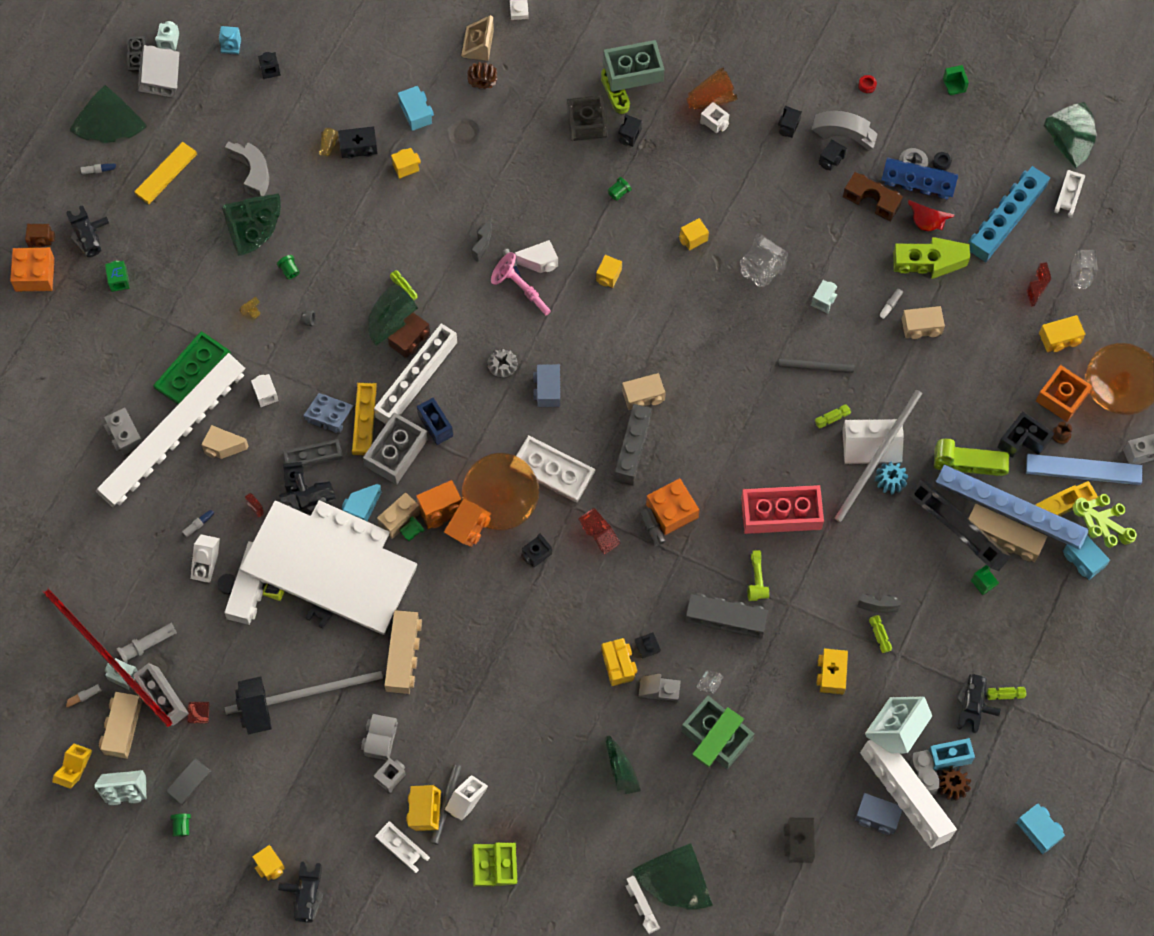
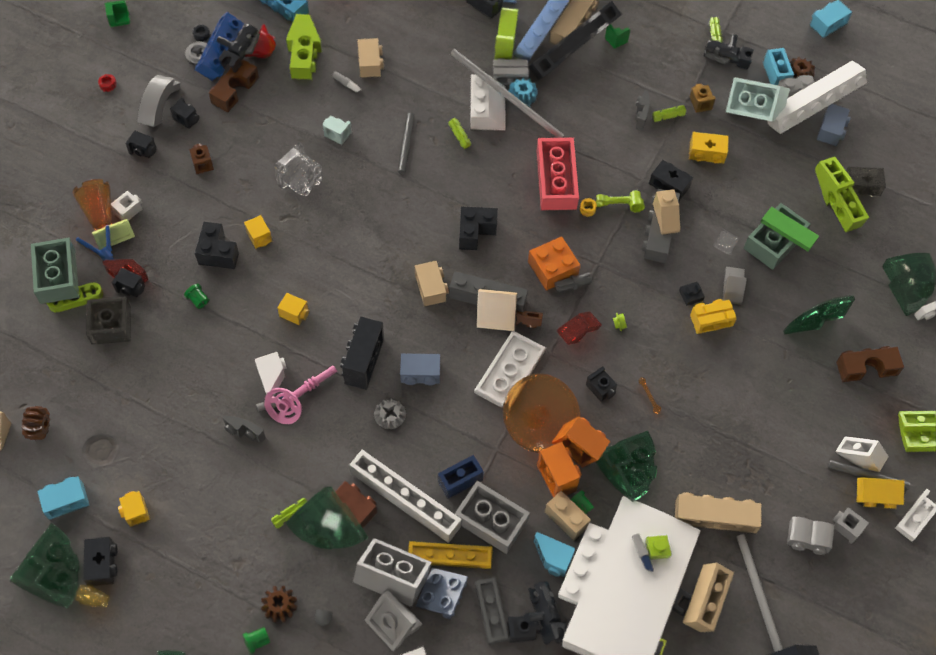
camera: 90 degrees left, 5 degrees down
(304, 372) = (392, 620): none -> light grey bracket
(317, 635) = (708, 597): none -> tan brick
(319, 282) = (279, 612): none -> reddish brown gear
(342, 365) = (392, 569): none -> light grey brick
(353, 107) = (50, 569): none -> clear green brick
(356, 573) = (642, 552): none -> light grey piece
(362, 588) = (658, 547): none -> lime plate
(451, 575) = (630, 465): none -> clear green brick
(514, 604) = (657, 409): none -> clear orange hinge
(558, 331) = (362, 352): none -> black brick
(566, 799) = (885, 360): none -> reddish brown arch
(607, 483) = (531, 319): none -> reddish brown plate
(609, 571) = (619, 321): none -> lime plate
(611, 449) = (496, 310): none -> tan tile
(646, 132) = (114, 266): none -> clear red slope
(661, 107) = (104, 253): none -> blue plant
(671, 195) = (212, 248): none -> black brick
(683, 111) = (119, 232): none -> yellowish green tile
(714, 427) = (476, 222): none -> black brick
(732, 612) = (667, 211): none -> tan slope
(747, 550) = (590, 211): none -> yellow bush
(775, 805) = (838, 192): none -> lime brick
(778, 176) = (200, 156): none -> reddish brown brick
(788, 618) = (669, 177): none -> black brick
(900, 674) = (702, 94): none -> pearl gold brick
(909, 190) = (238, 48): none -> black piece
(918, 463) = (509, 70): none -> light grey brick

